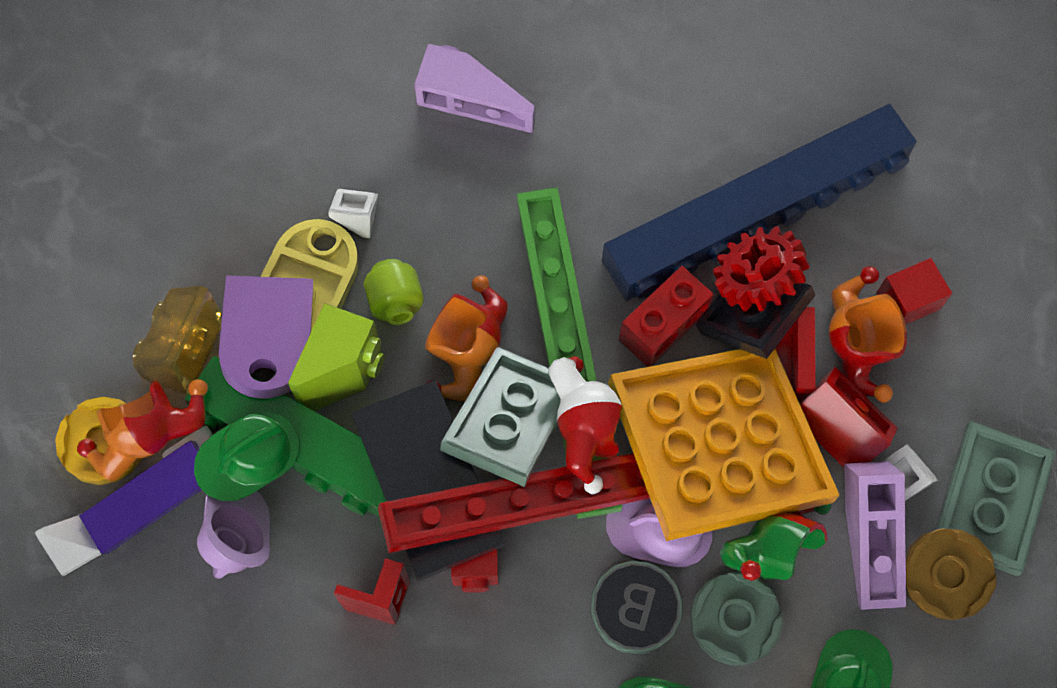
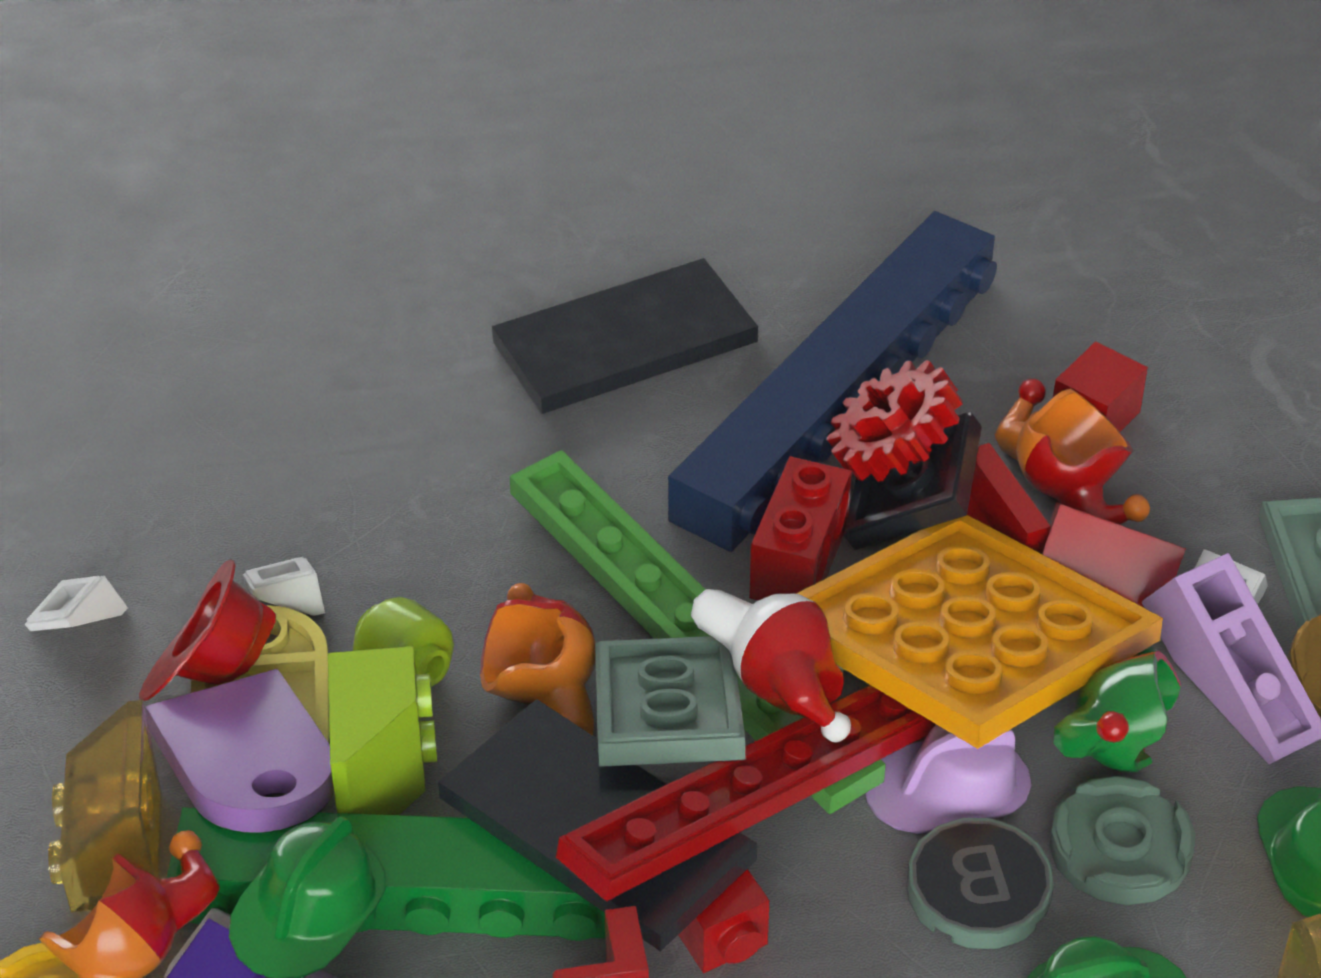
camera: 25 degrees left, 25 degrees down
(233, 173) = (77, 603): none -> white slope
(286, 244) = (218, 639): none -> red piece
(464, 87) = (374, 391): lavender slope -> none
(649, 107) = (623, 335): none -> black tile

